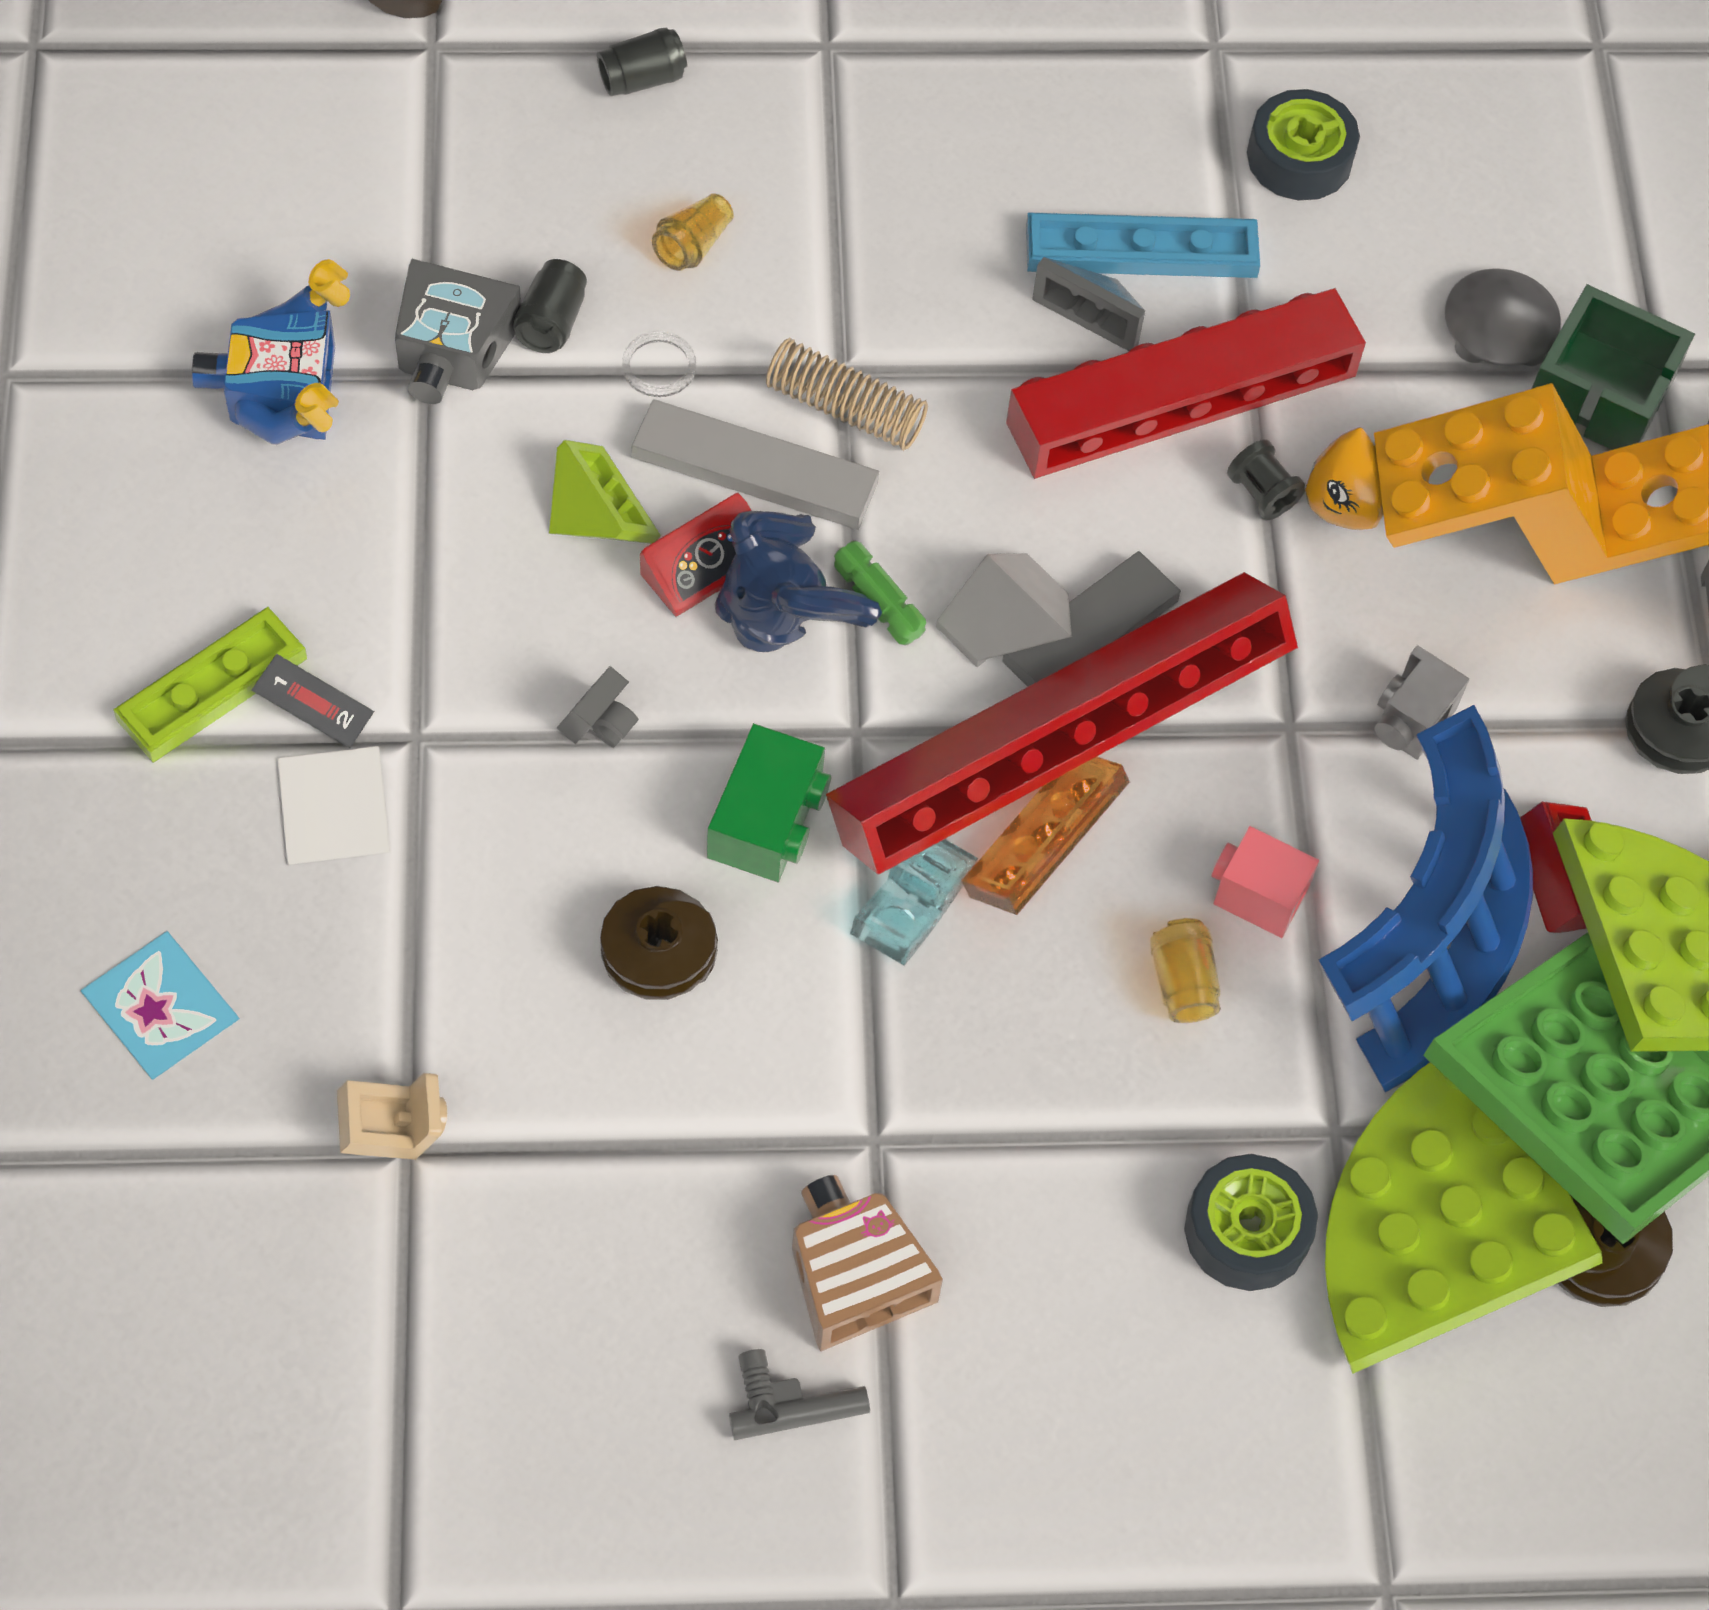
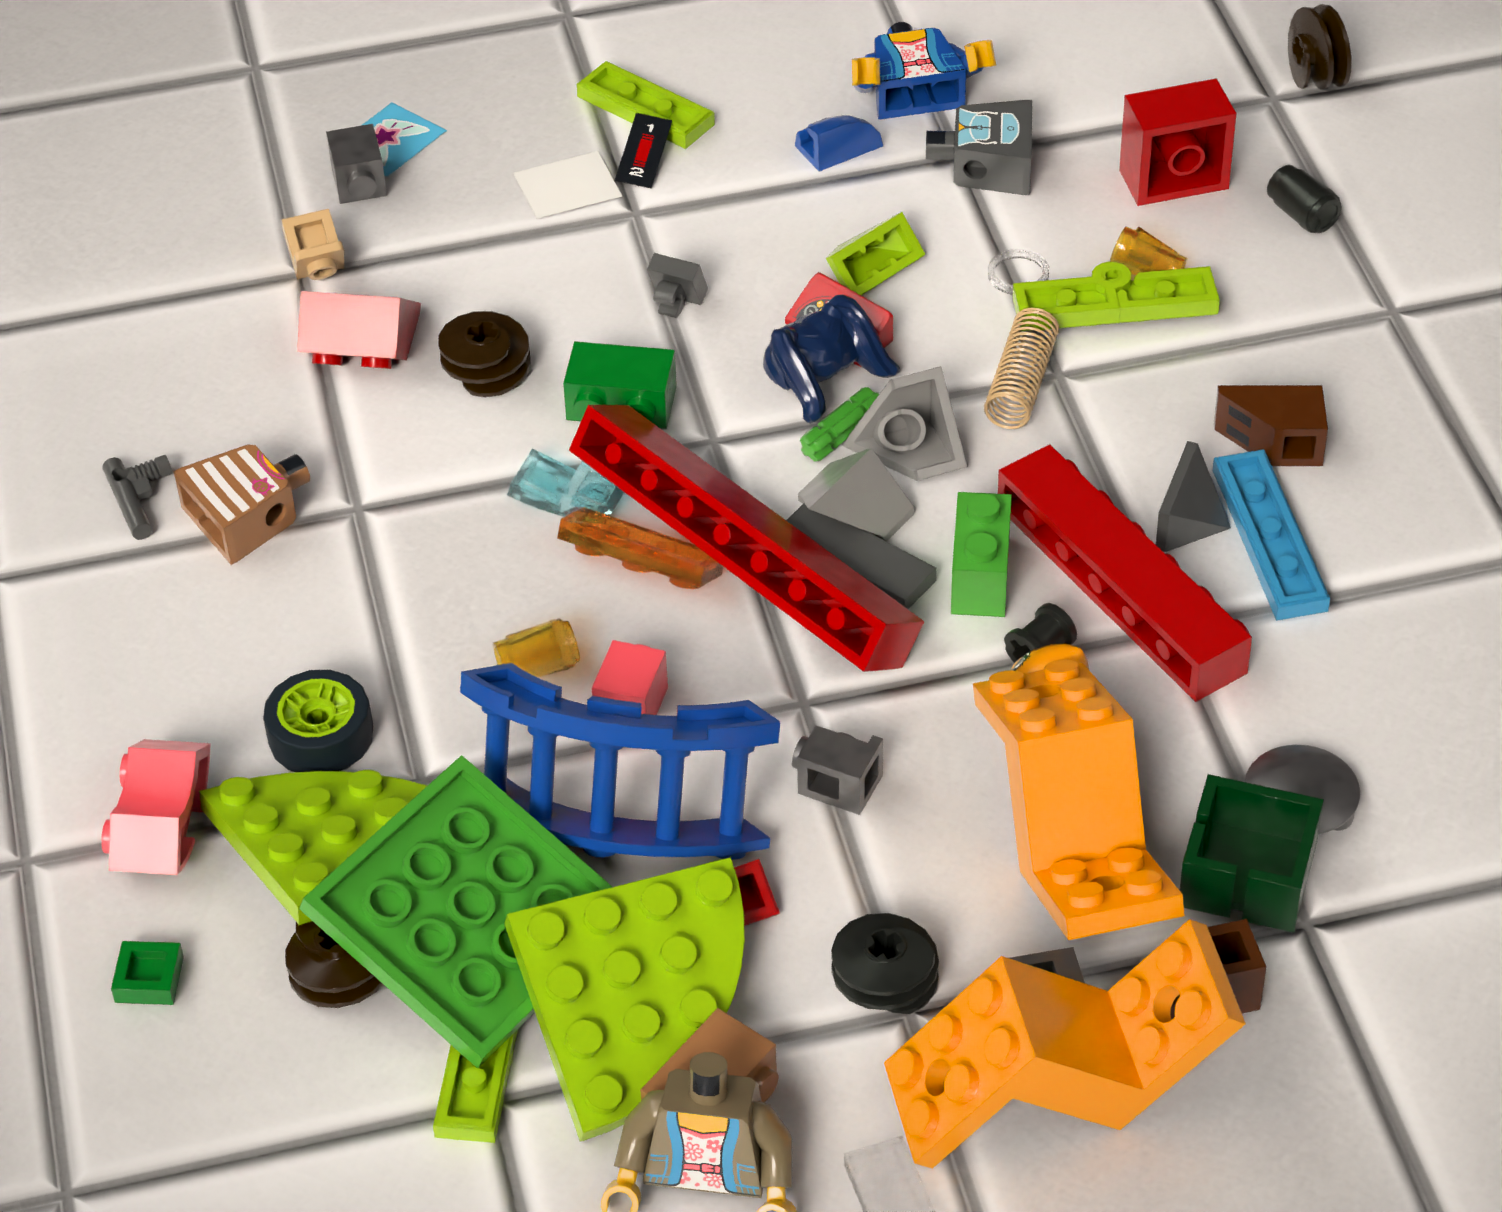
camera: 85 degrees right, 15 degrees down
(236, 1042) = (356, 163): none -> flat silver brick
(367, 491) = (837, 140): none -> blue brick
(535, 140) = (1177, 141): none -> red brick
(550, 306) = (1037, 194): pearl dark grey piece -> none
(568, 1082) = (356, 327): none -> slope
(750, 279) = (1115, 298): none -> lime hinge
(755, 464) = (942, 321): light grey tile -> none
(925, 520) = (912, 427): none -> light grey slope
(1001, 187) = (1276, 418): none -> reddish brown slope
(1140, 499) = (981, 554): none -> bright green brick
(1303, 144) = (1431, 617): black wheel -> none
(1364, 1412) = (156, 806): none -> coral brick
(1587, 1458) = (147, 972): none -> green tile

